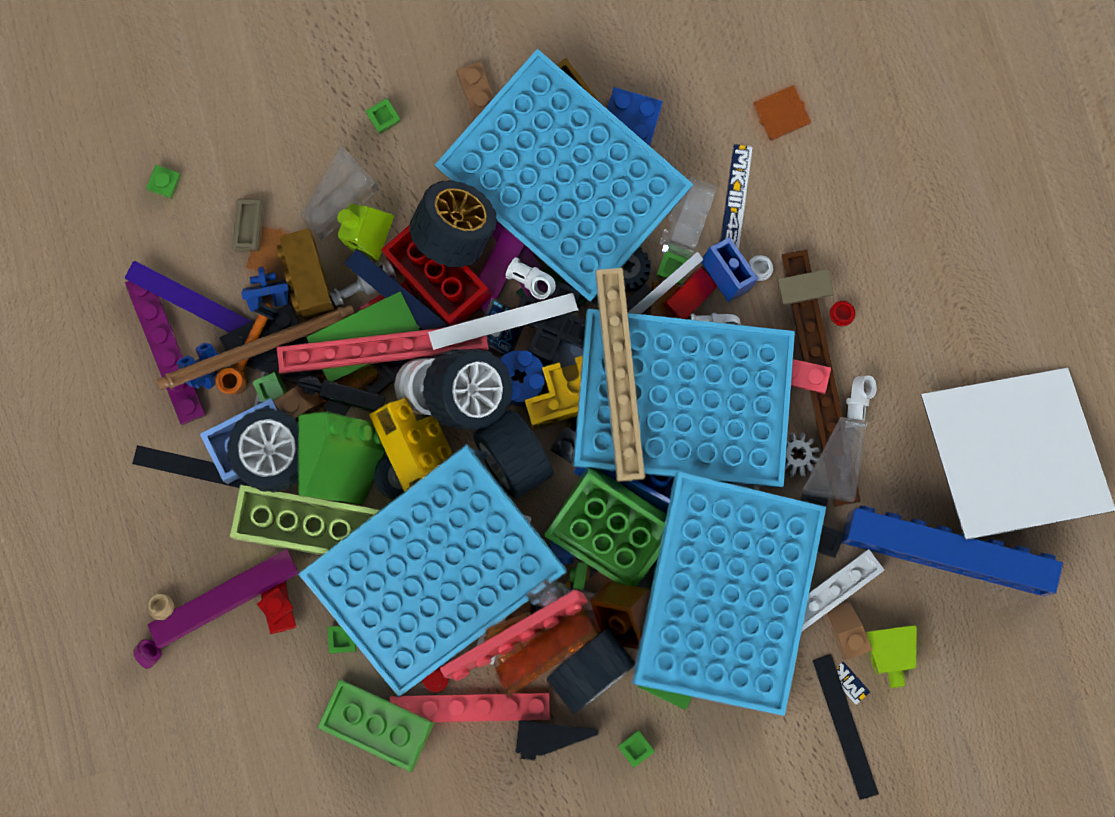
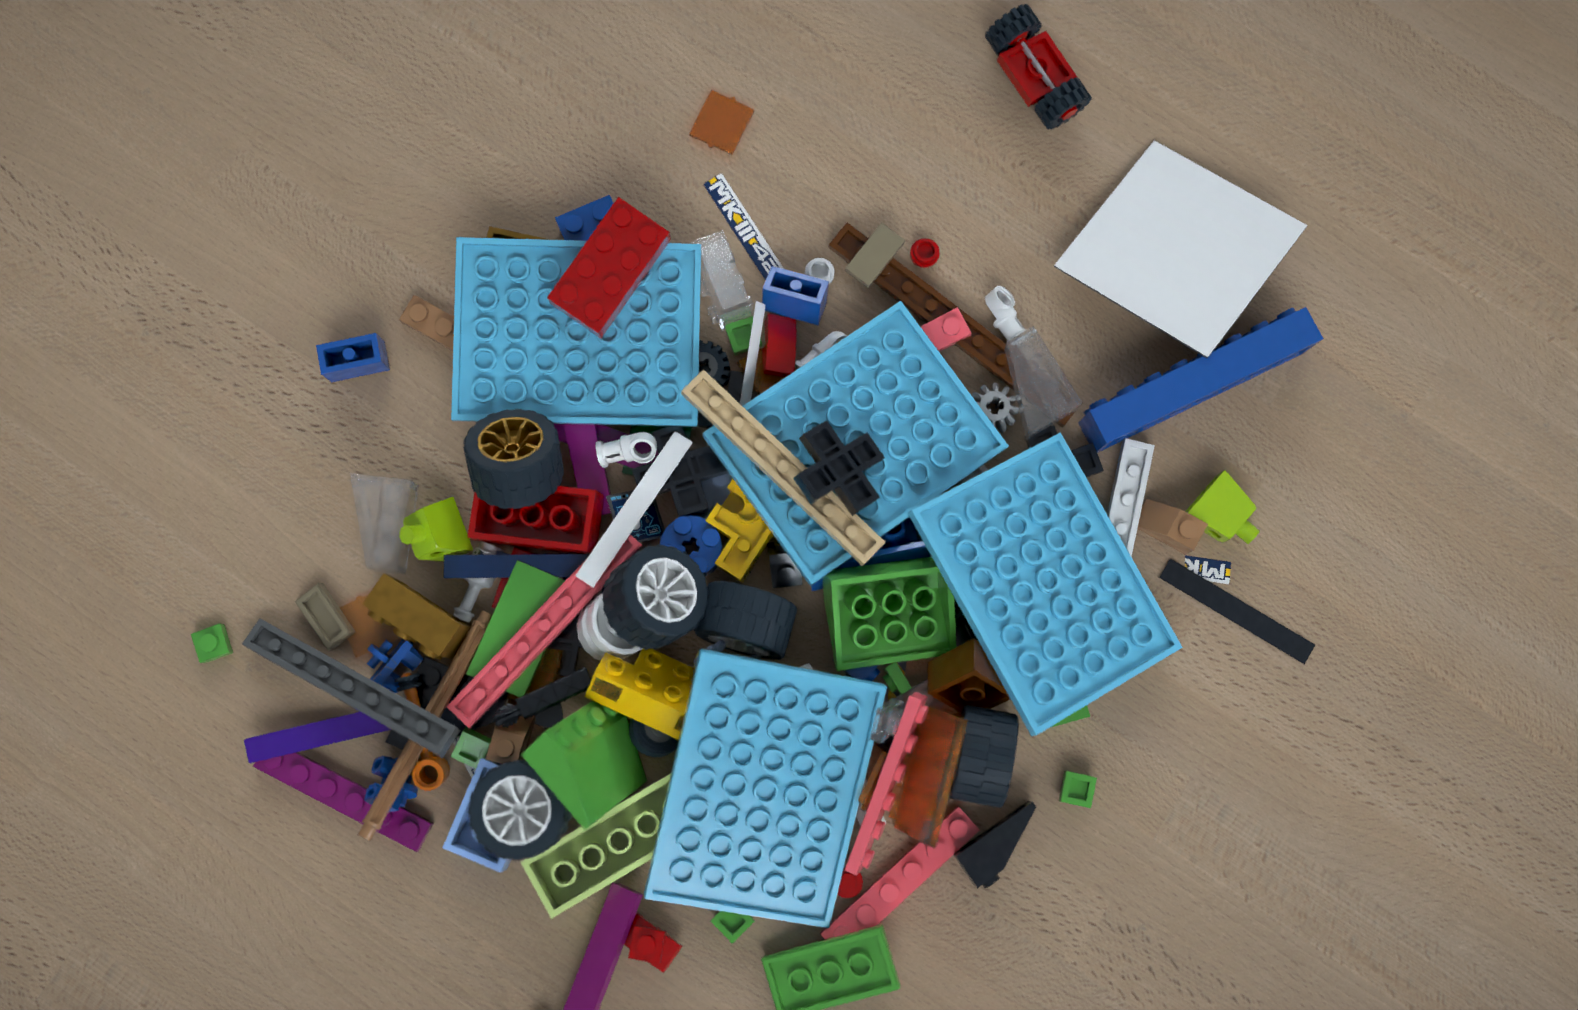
camera: 40 degrees left, 0 degrees up
(180, 465) = (445, 890): black sticker -> none
(227, 284) = (351, 688): none -> dark grey plate
(383, 116) = (366, 416): bright green plate -> none
(406, 71) = (353, 357): none -> blue brick
(618, 151) = (609, 267): none -> red brick
(655, 405) = (839, 468): none -> black plate
(1026, 251) = (1037, 67): none -> plate

